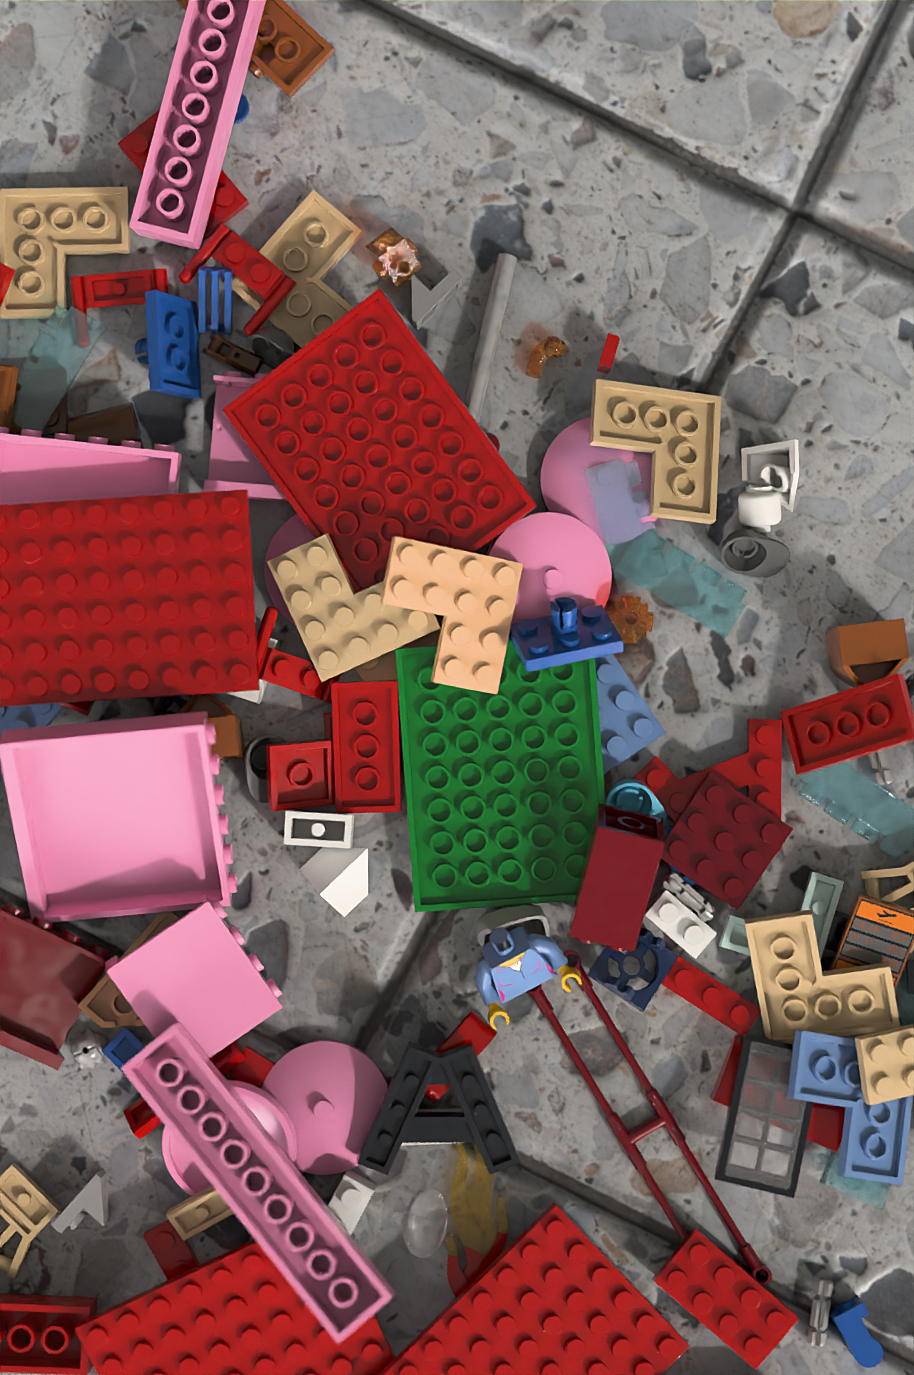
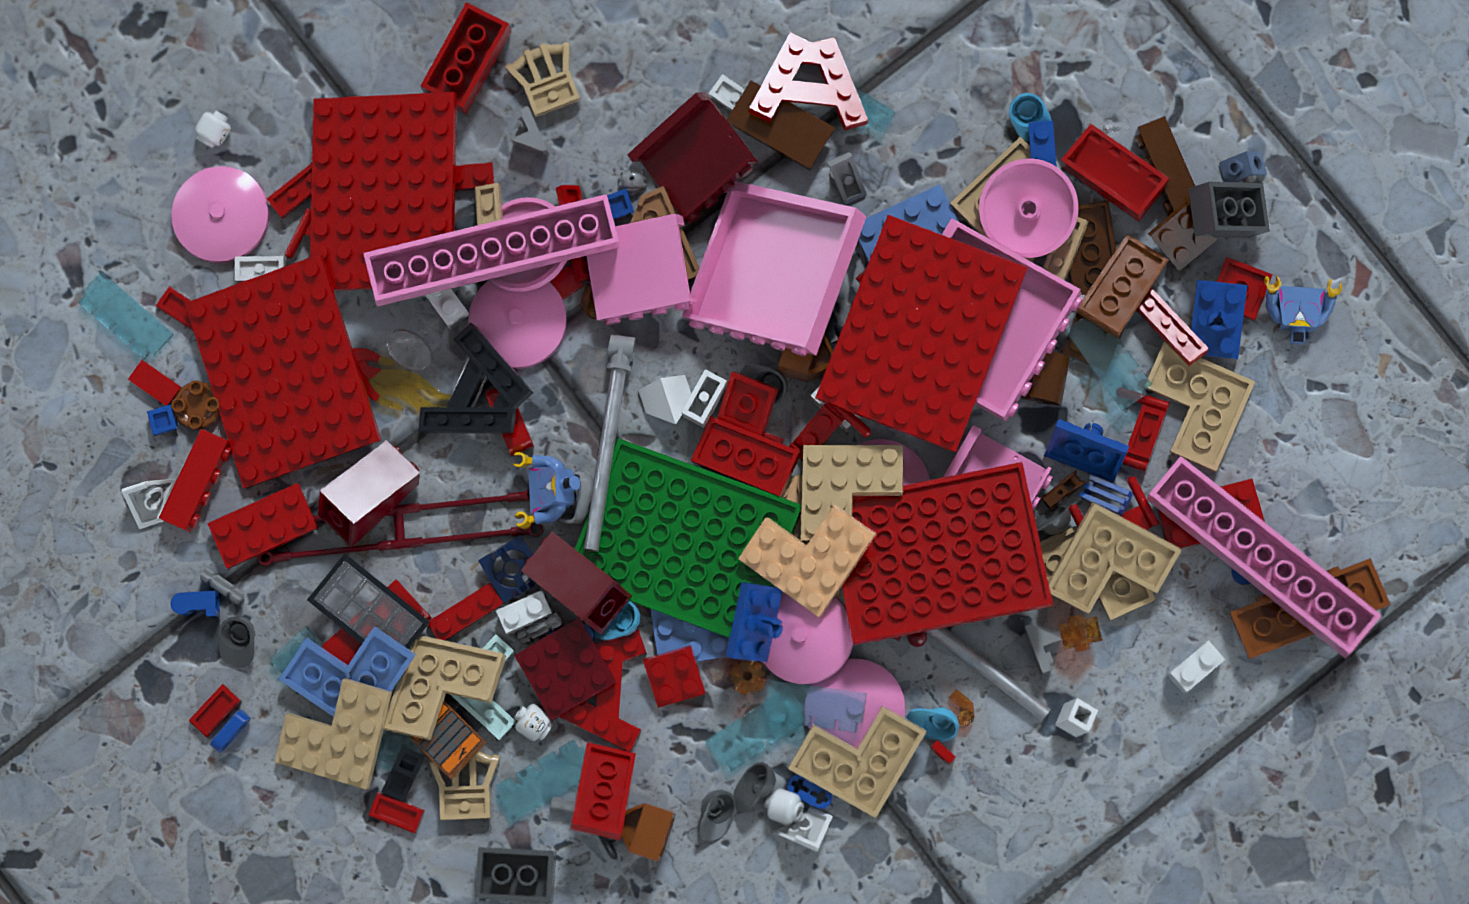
camera: 125 degrees right, 5 degrees down
(264, 1030) = (587, 302): none -> clear orange arm
(276, 268) = (1108, 545): none -> tan plate
(310, 957) = (621, 353): none -> flat silver piece
(371, 108) = (1196, 667): none -> white brick
(495, 216) = (1076, 717): none -> white brick
(576, 374) = (939, 723): none -> medium azure cap
(625, 1188) = (367, 492): none -> slope
(668, 708) = (674, 676): none -> red plate
(734, 487) = (806, 797): none -> blue beam
(804, 850) = (533, 722): none -> white head
(805, 582) = (717, 814): none -> dark grey cap
(879, 1259) = (236, 641): none -> dark grey cap

